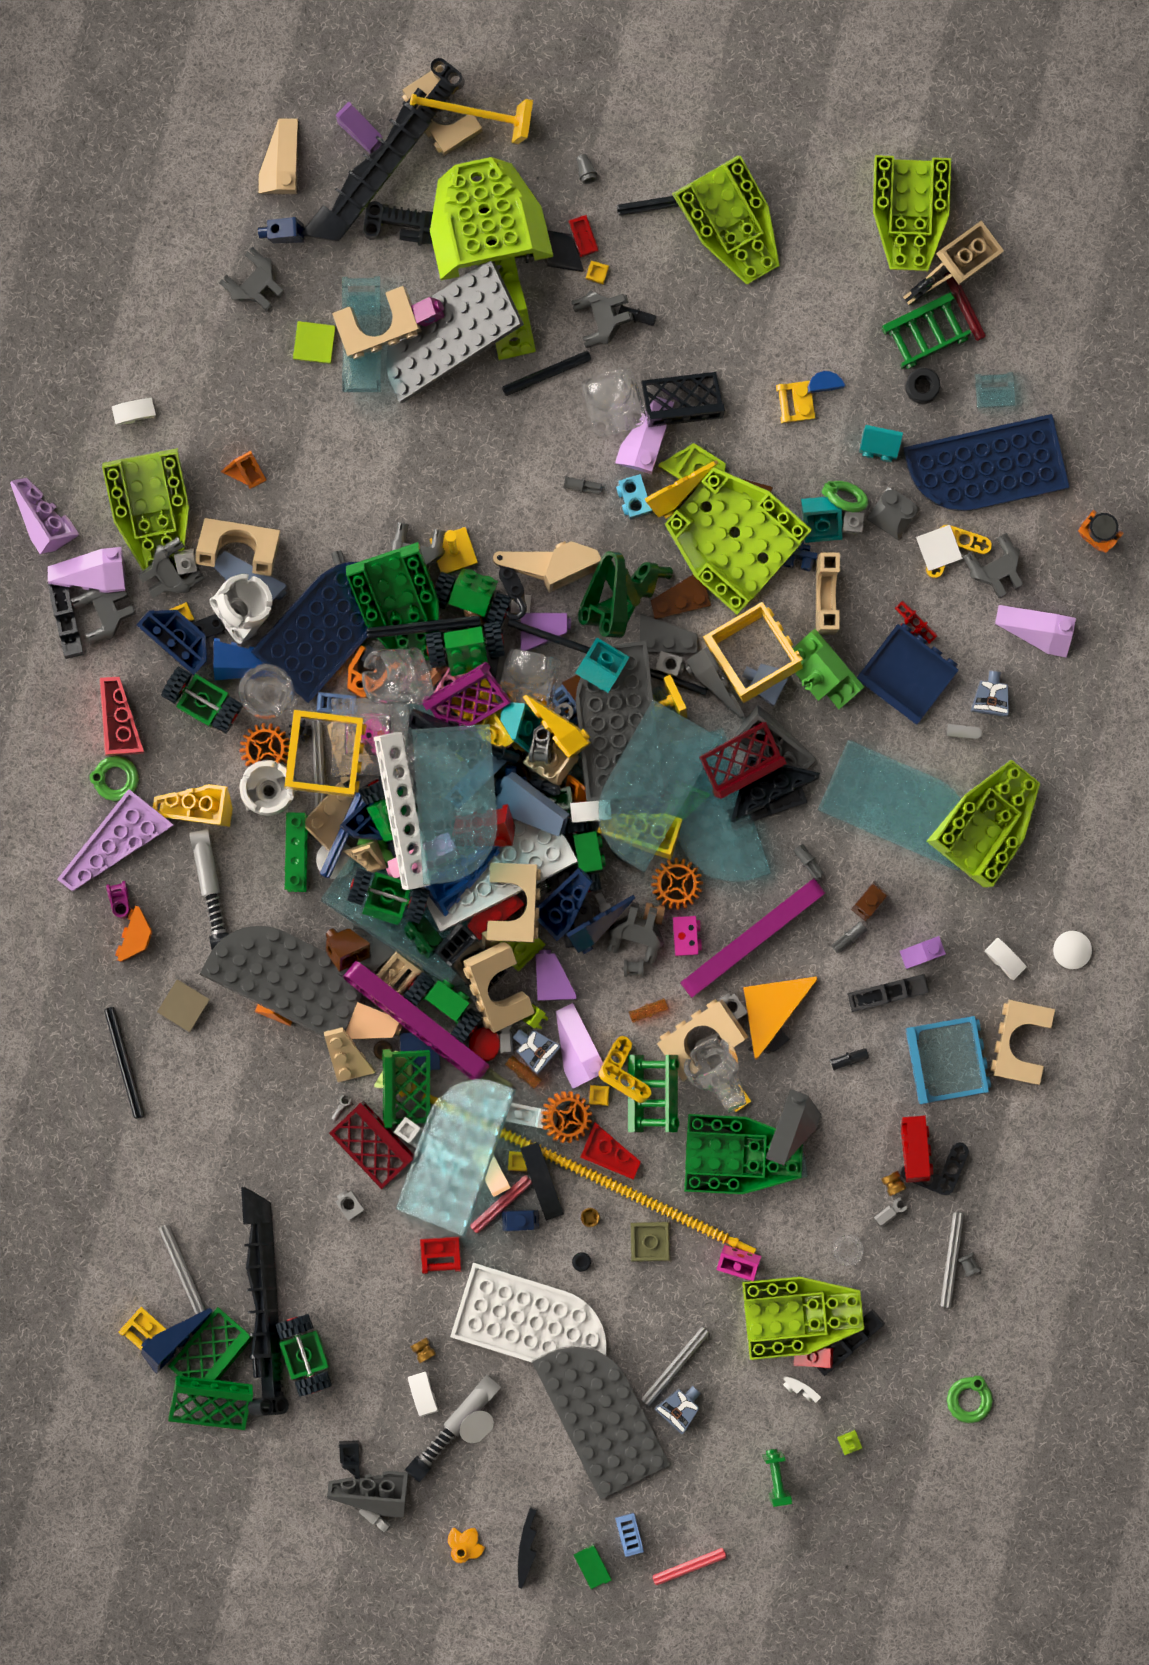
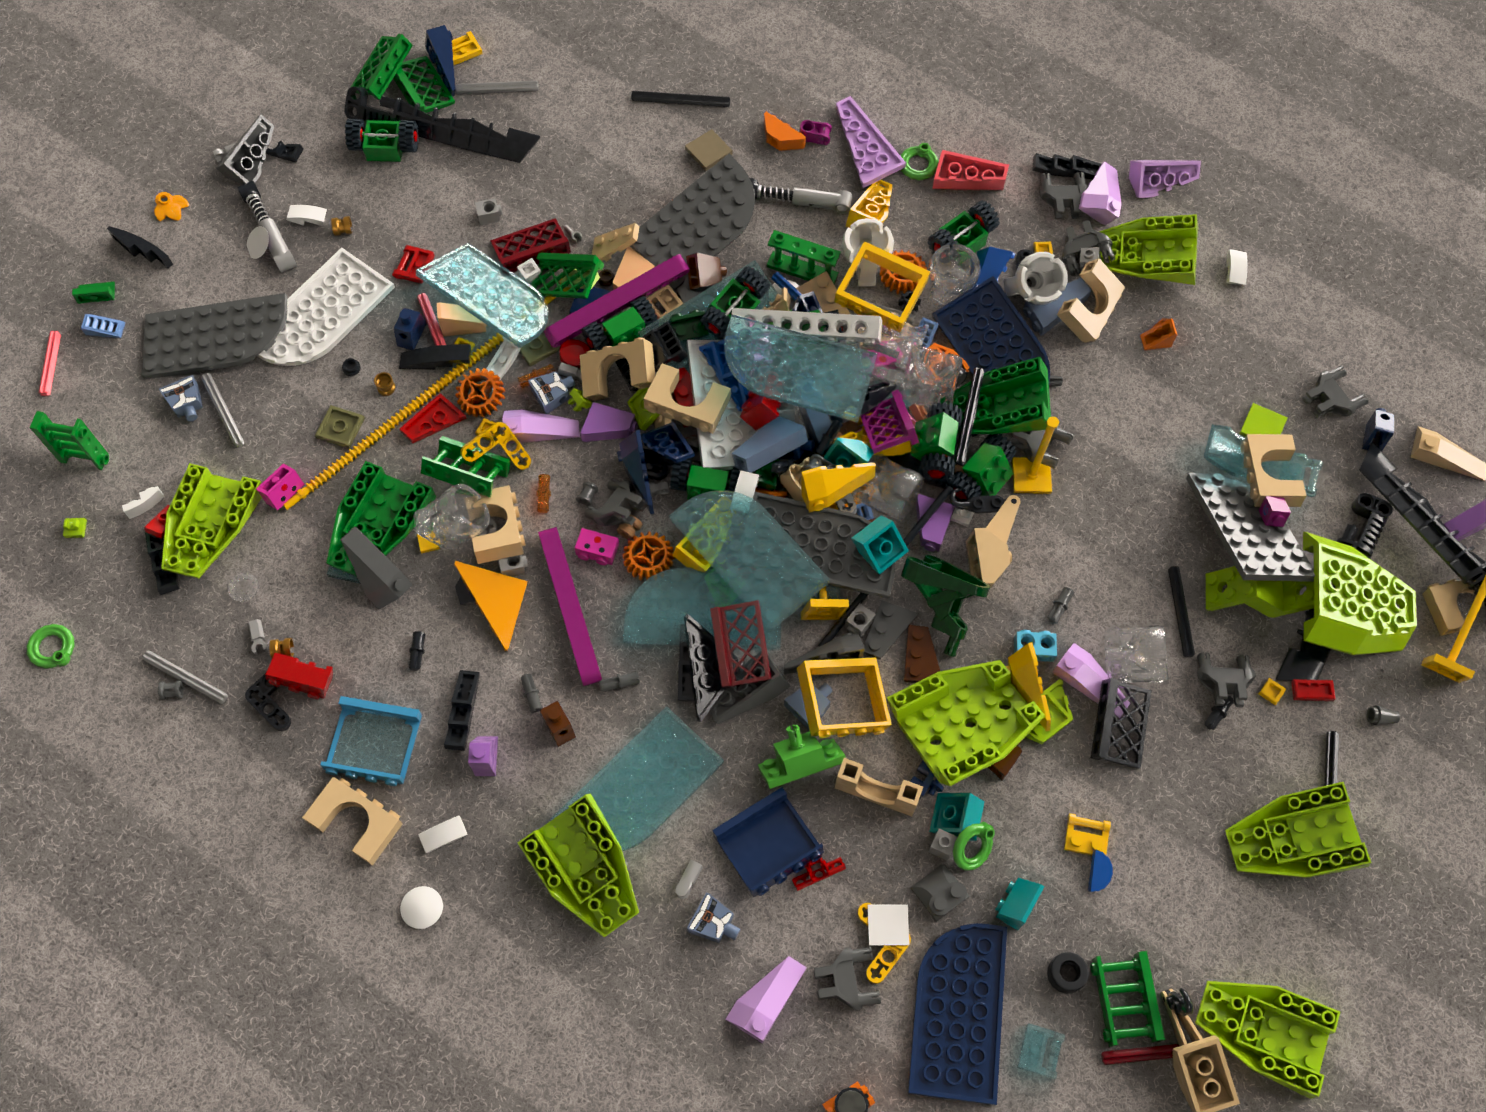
camera: 110 degrees right, 20 degrees down
(177, 637) = (1025, 232): dark blue wedge -> none

